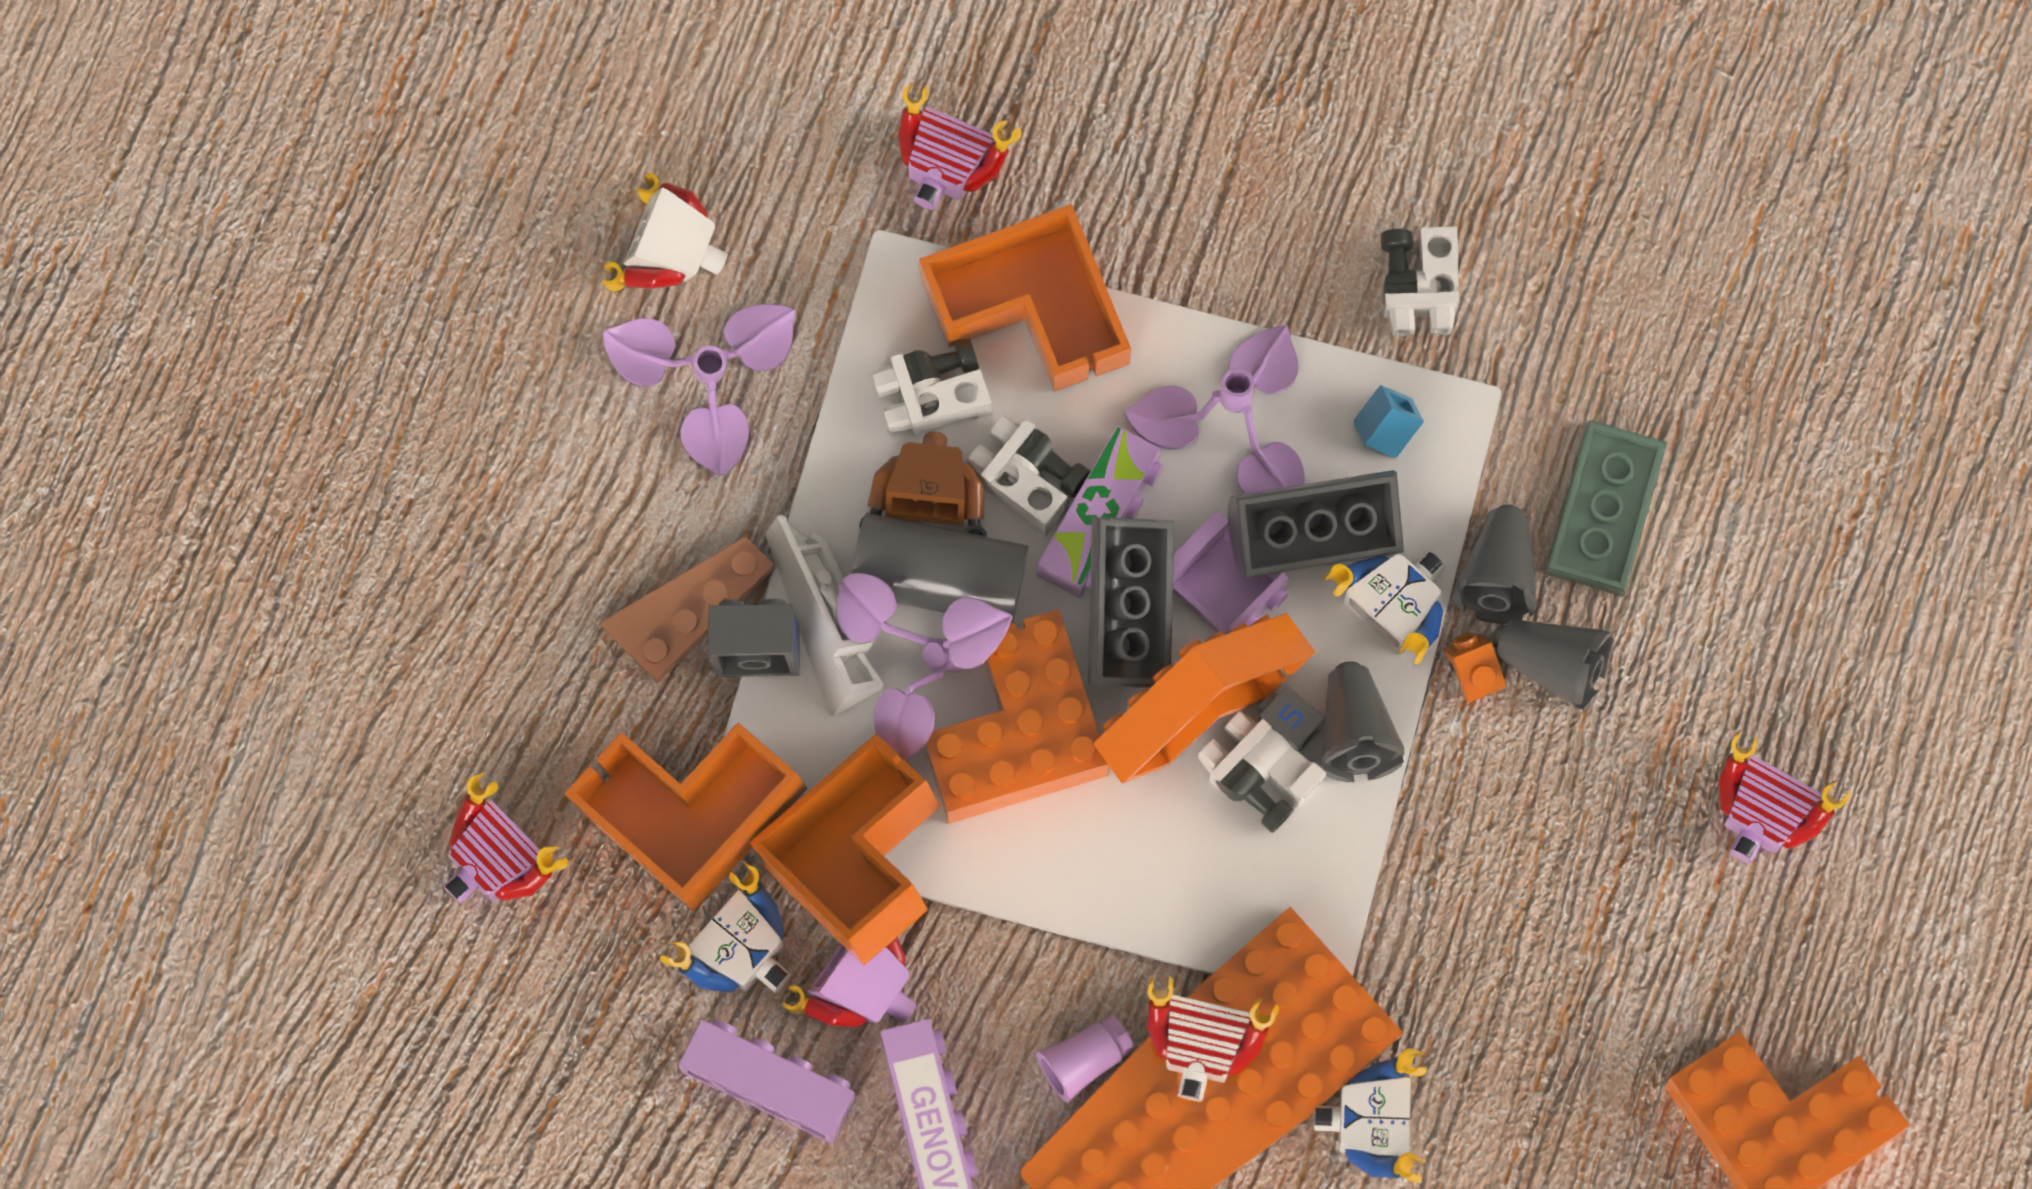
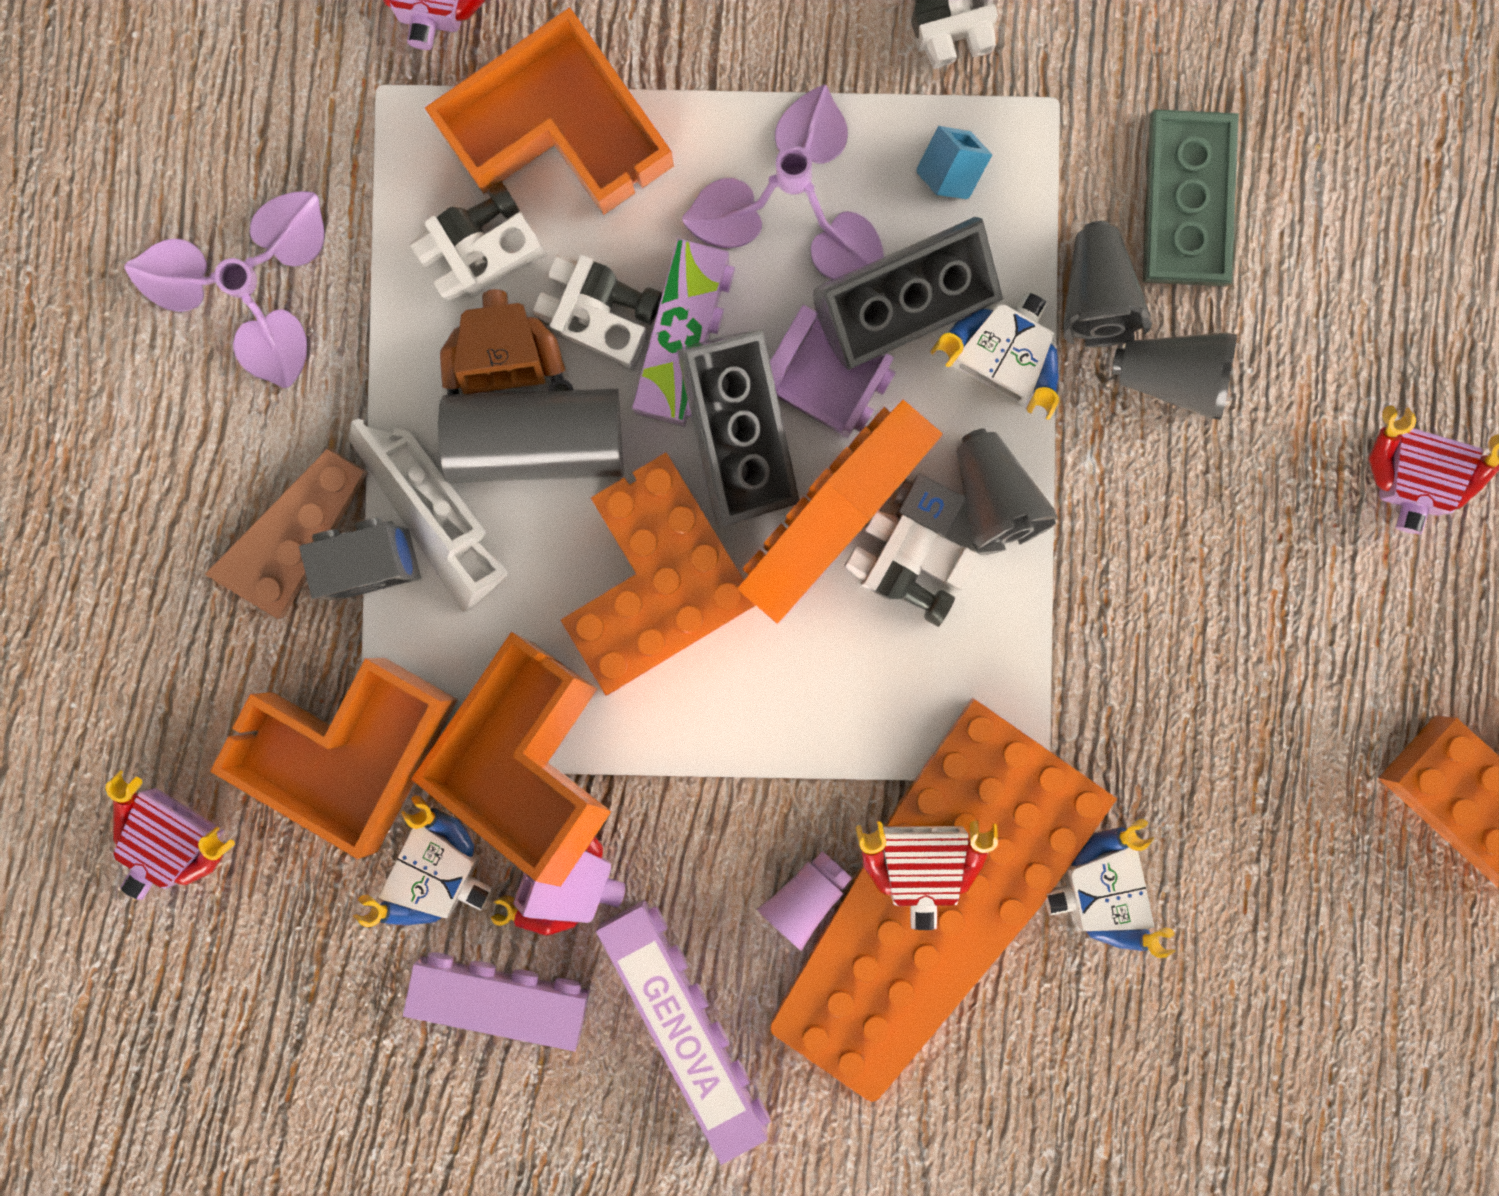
camera: 15 degrees left, 15 degrees up
(668, 241) = (164, 151): white torso -> none
(972, 636) = (578, 515): lavender plant -> none
(1475, 666) = (1098, 397): orange bracket -> none

